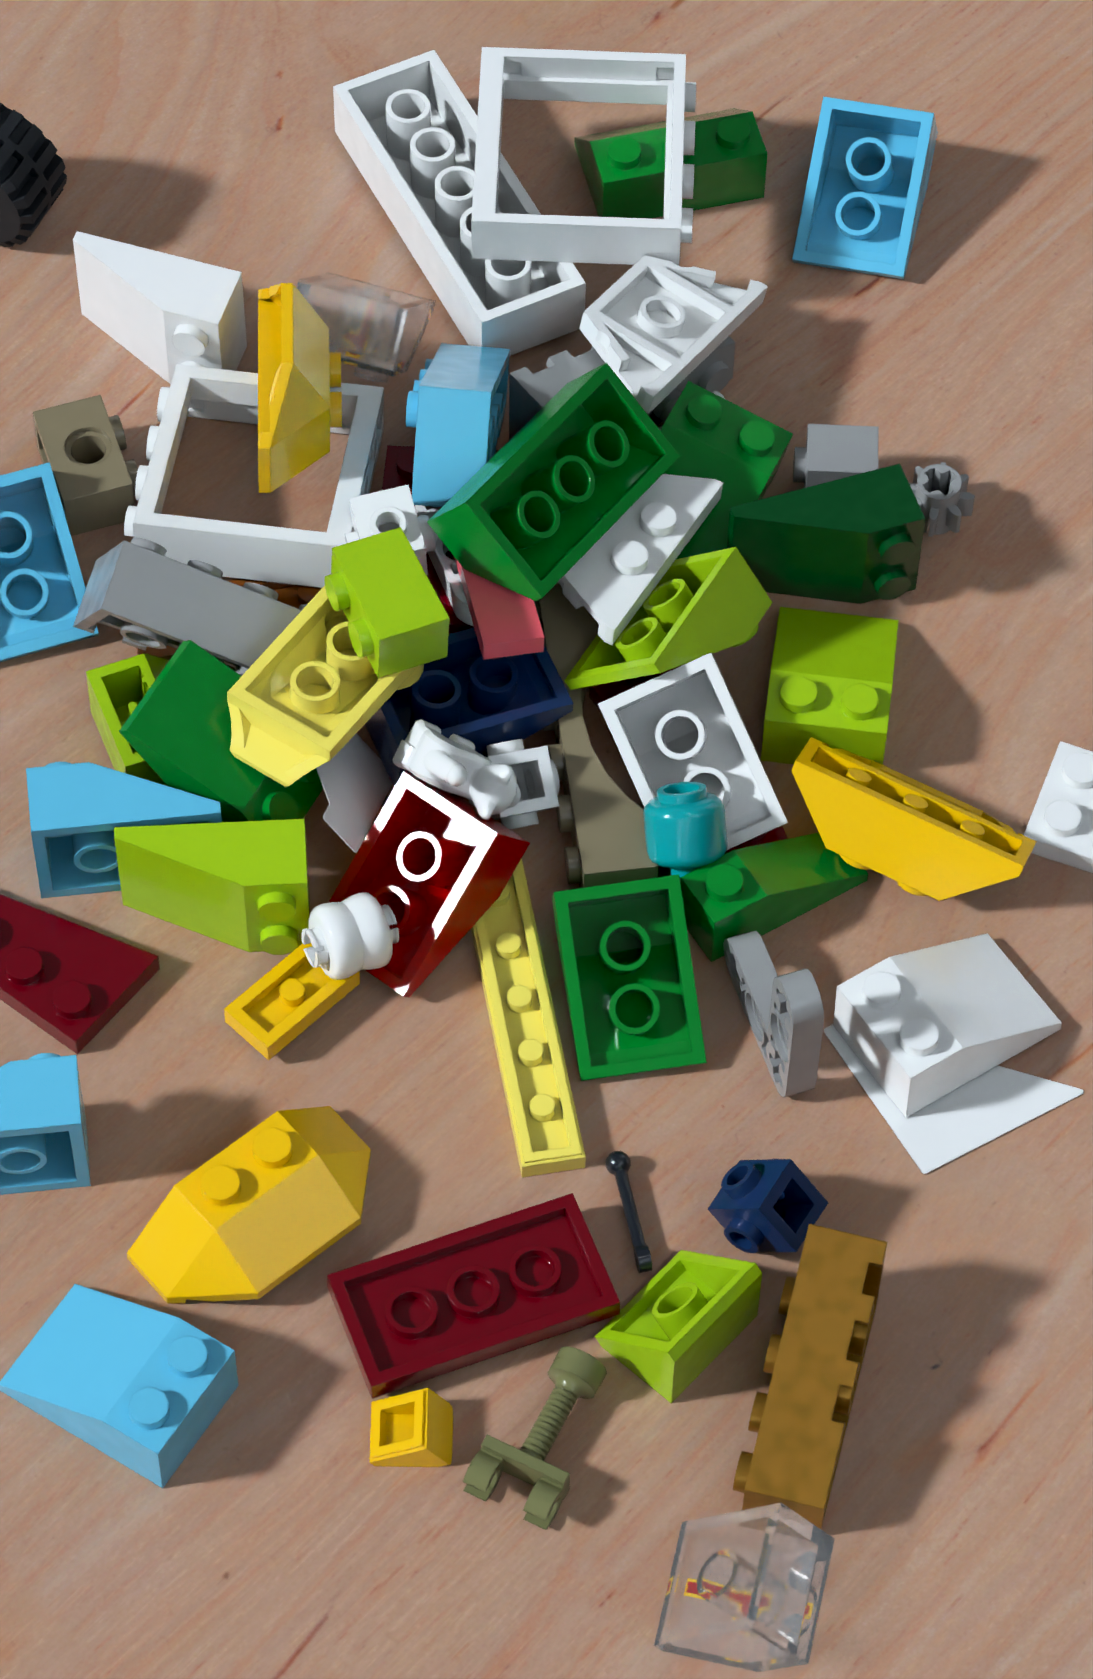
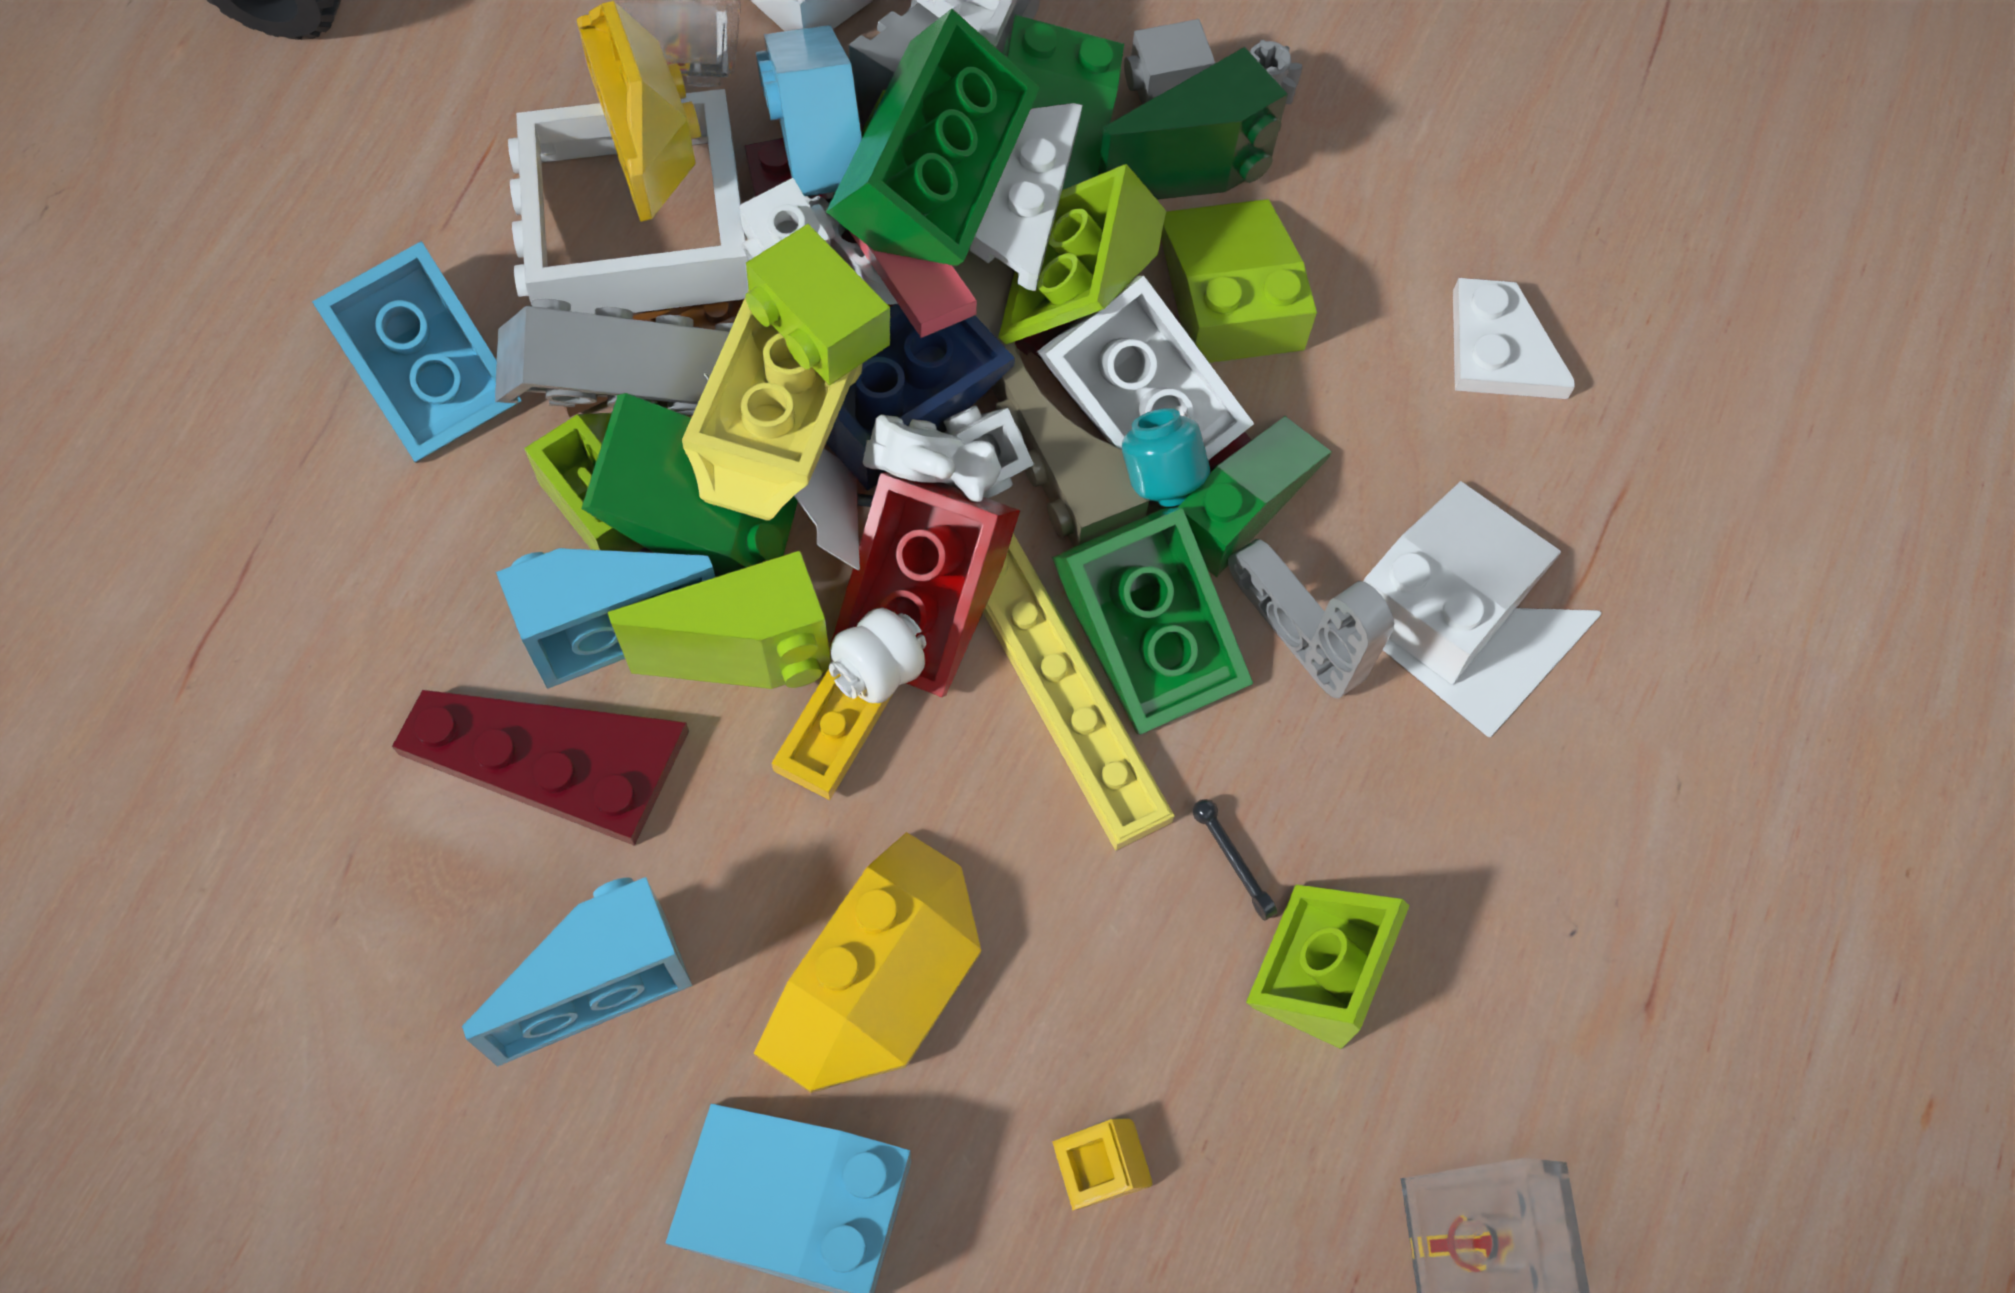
camera: 20 degrees left, 10 degrees up
(87, 462) = (458, 231): dark tan brick -> none
(162, 304) = (482, 56): white slope -> none
(472, 1295) = (1116, 999): dark red plate -> none
(575, 1377) = (1247, 1058): olive bar -> none
(767, 1205) = (1374, 822): dark blue brick -> none
(812, 1373) = (1484, 999): pearl gold wedge -> none
(905, 827) = (1366, 399): yellow wedge -> none

